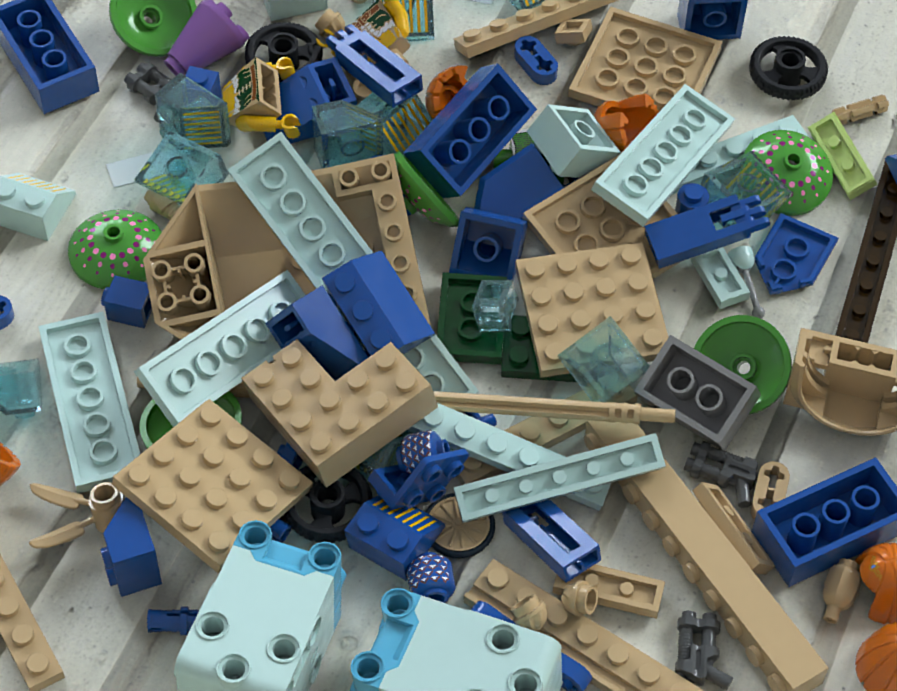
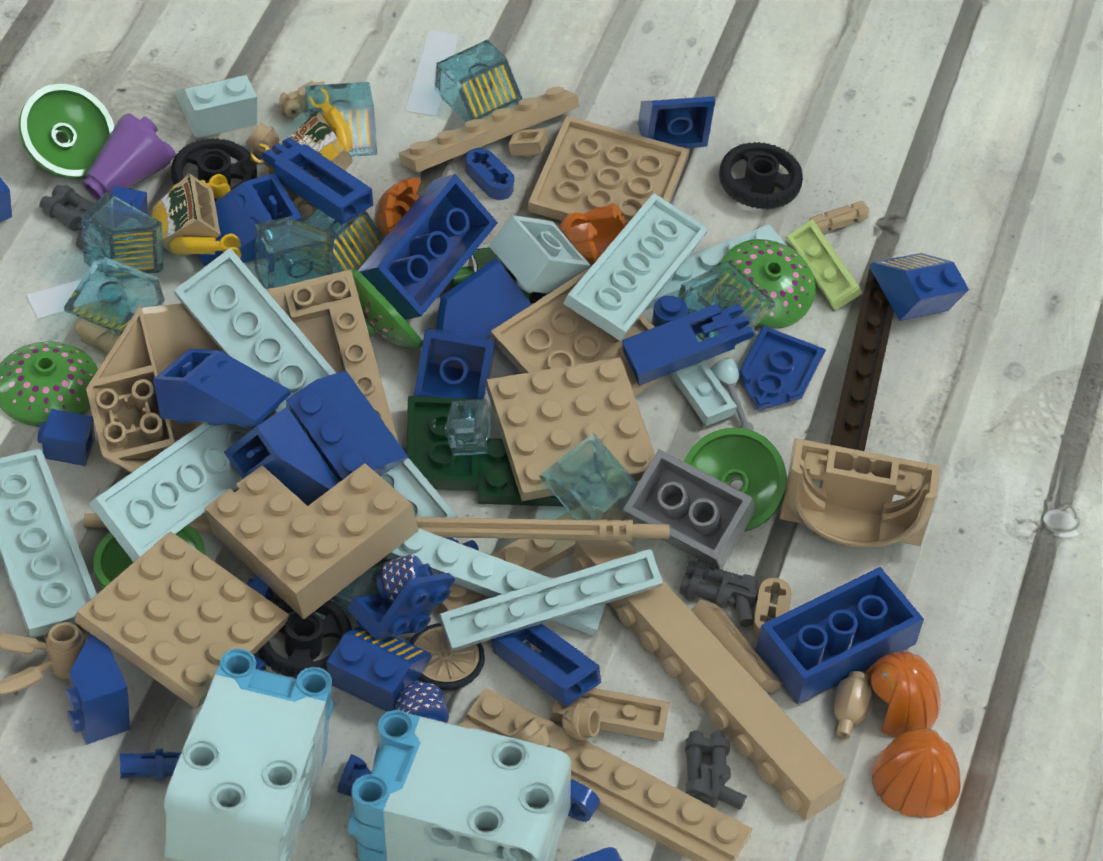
camera: 10 degrees left, 5 degrees down
(260, 266) = (216, 390): none -> blue slope
(363, 638) = (354, 769): none -> blue tile

